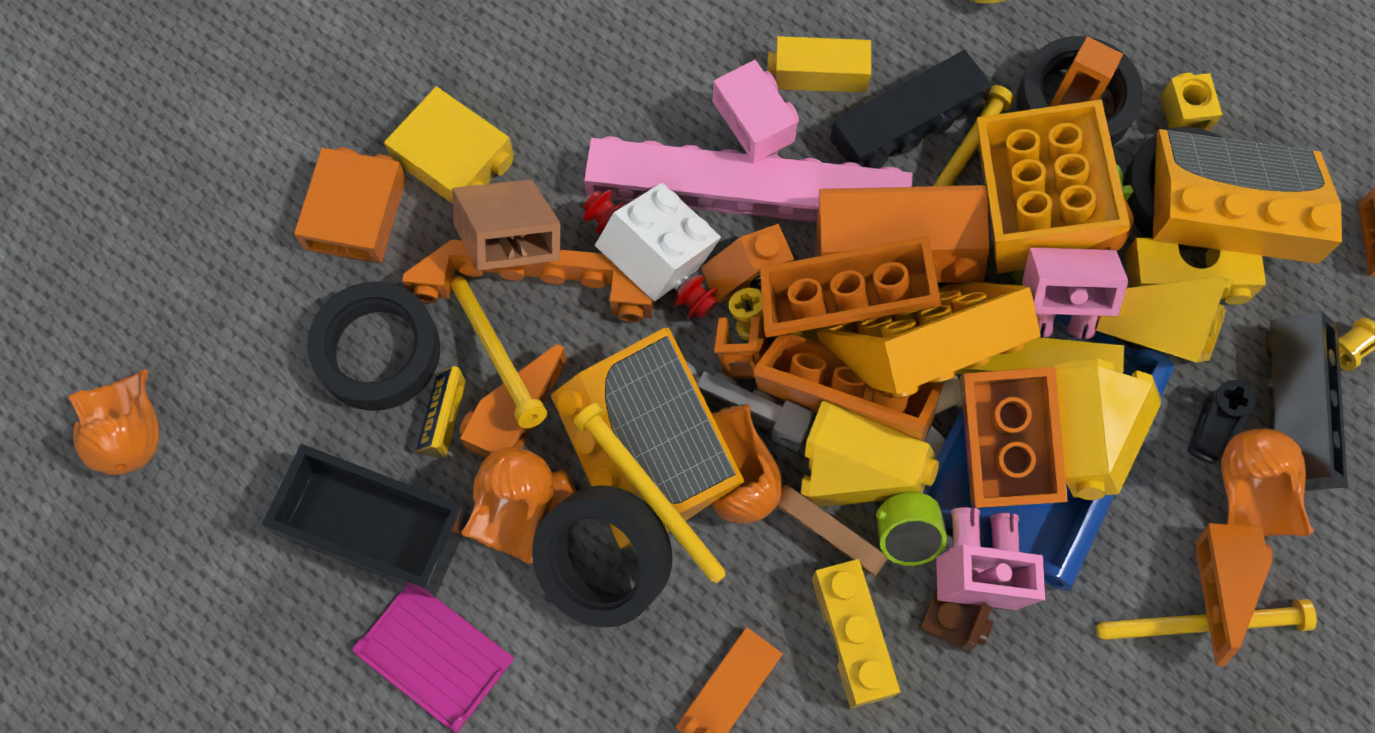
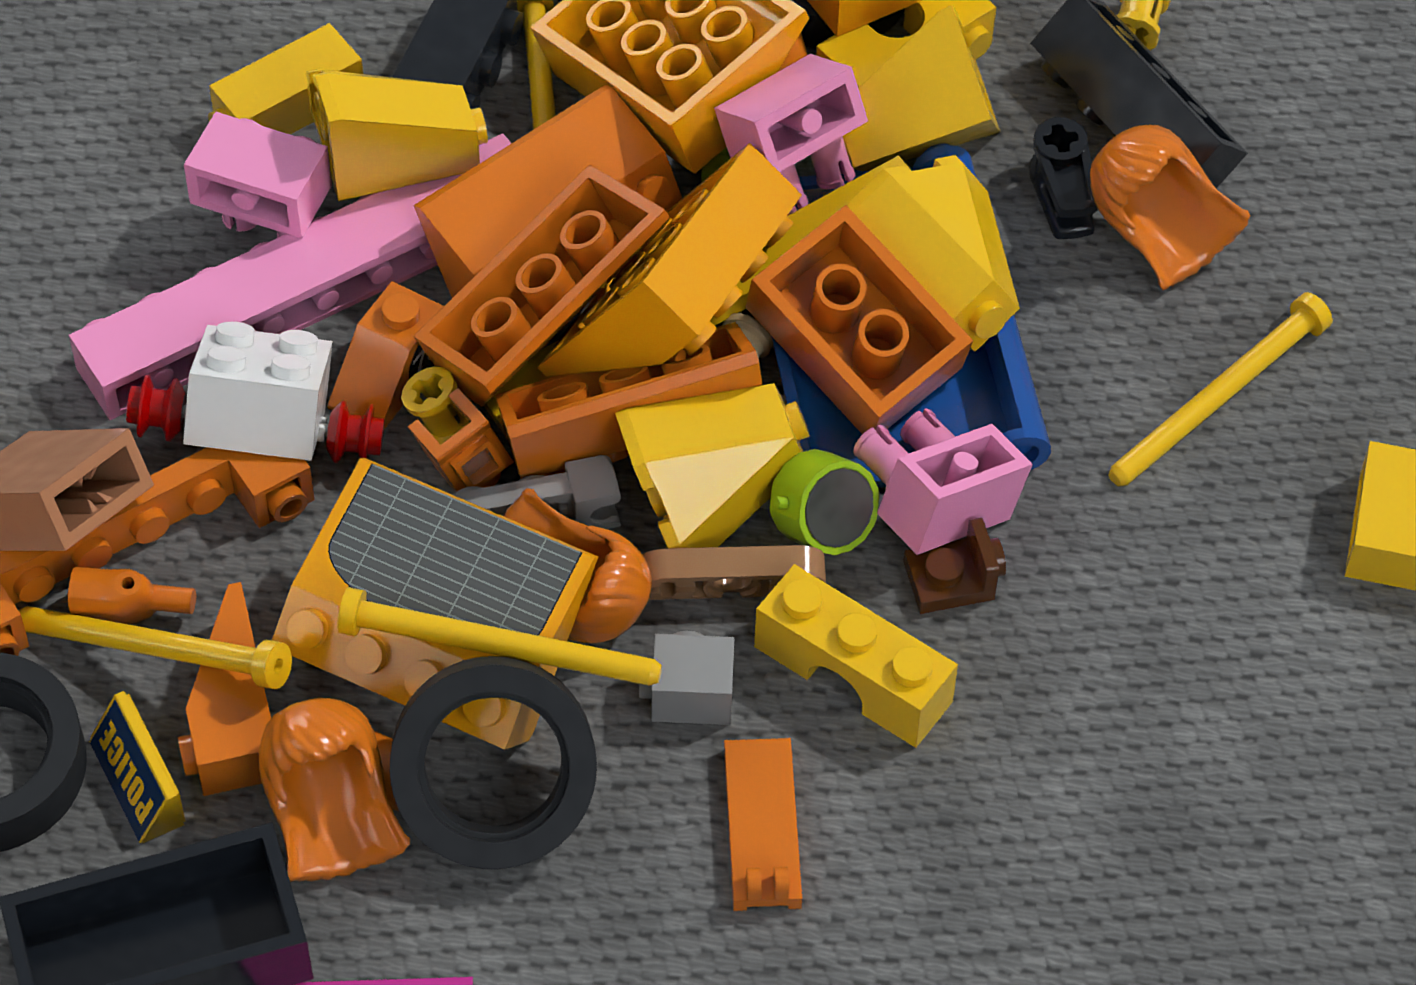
camera: 40 degrees left, 15 degrees down
(507, 307) = (124, 595): none -> orange piece
(756, 576) = (693, 679): none -> light grey brick
(844, 131) = (392, 130): none -> yellow slope
(1232, 575) = (1205, 319): orange slope -> none

